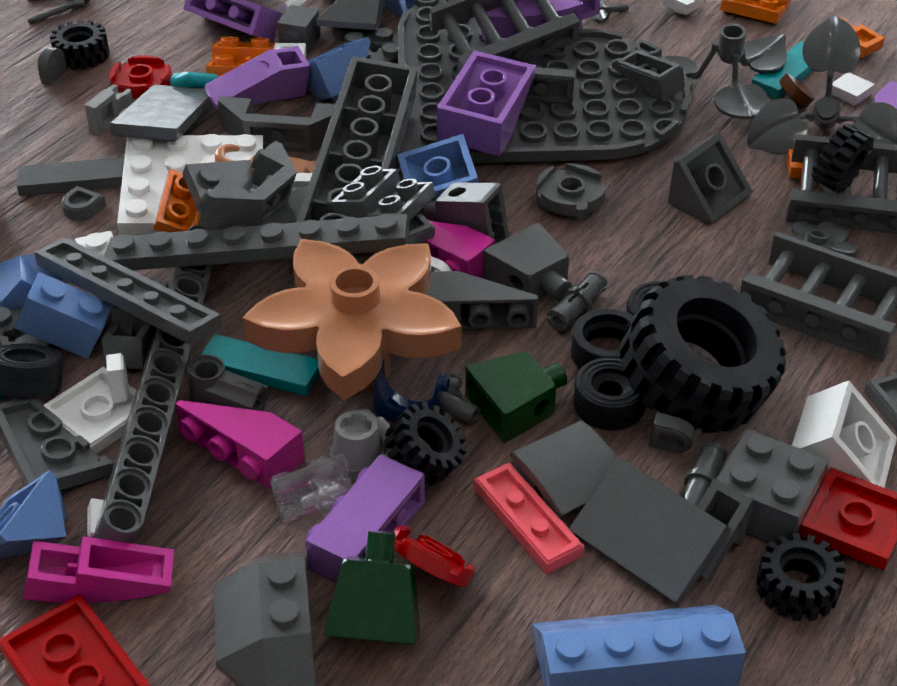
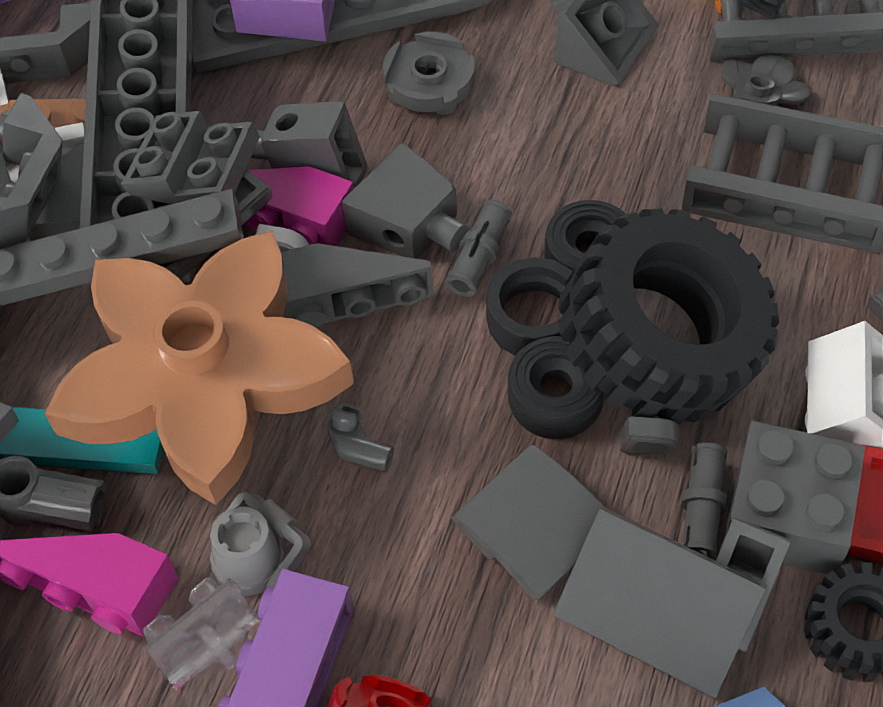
camera: 10 degrees left, 15 degrees up
(391, 405) = (295, 470): dark blue helmet -> none
(436, 431) = (355, 513): black tyre -> none
(439, 163) = (250, 80): medium blue slope -> none
(513, 392) = (431, 415): dark green torso -> none
(528, 518) = (495, 605): coral tile -> none

